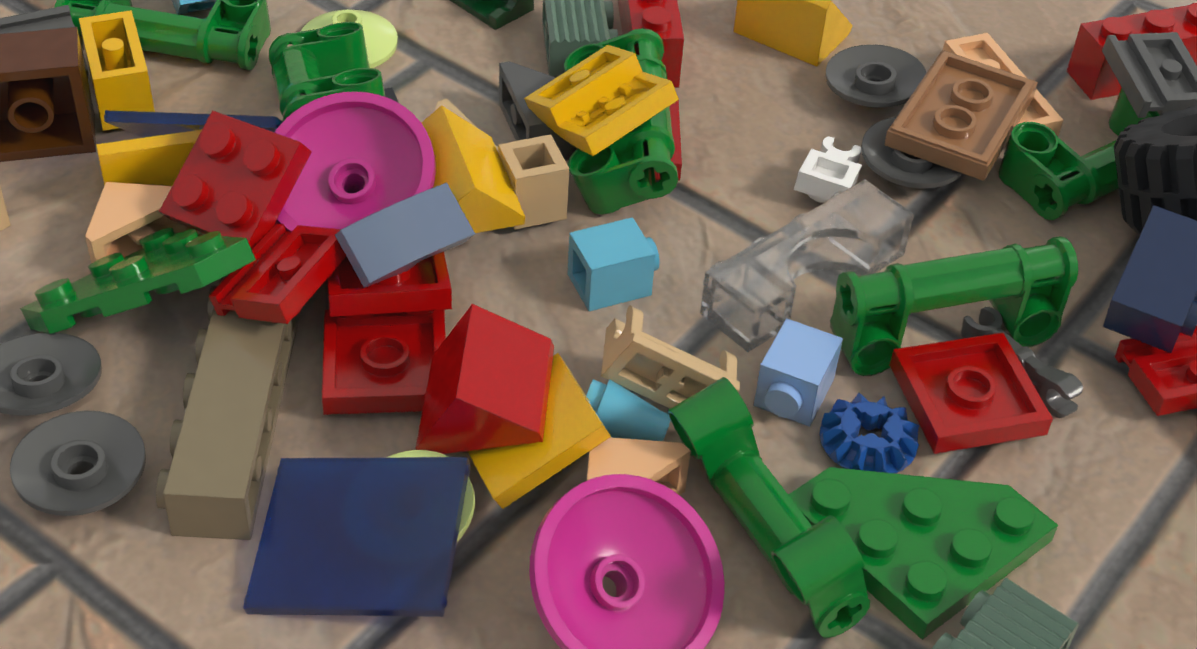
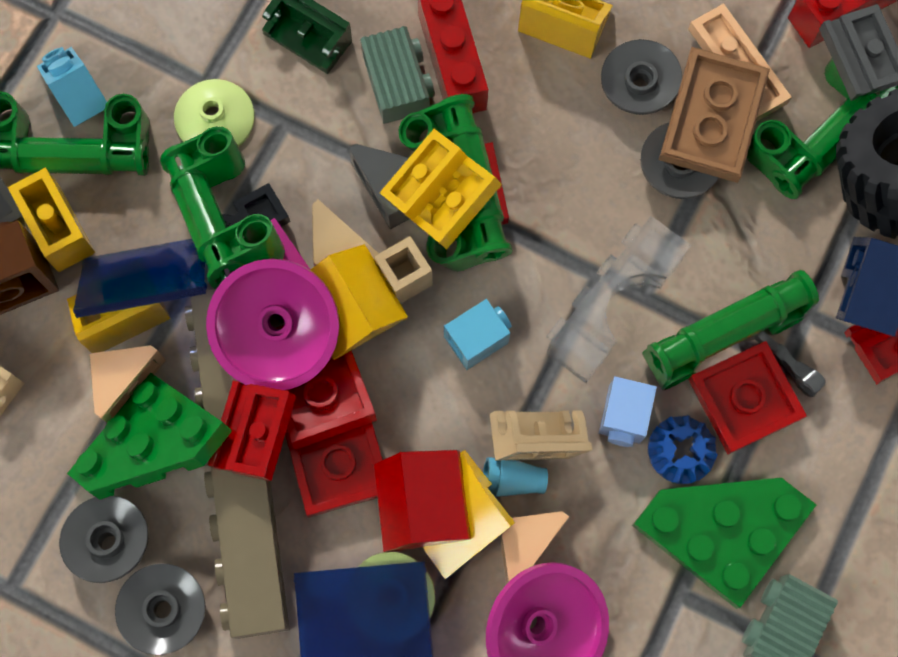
camera: 10 degrees left, 30 degrees up
(235, 179) = (192, 353): red plate -> none
(404, 234) = (334, 383): sand blue slope -> none
(812, 561) = (666, 597): green piece -> none
(828, 171) = (619, 194): white plate -> none

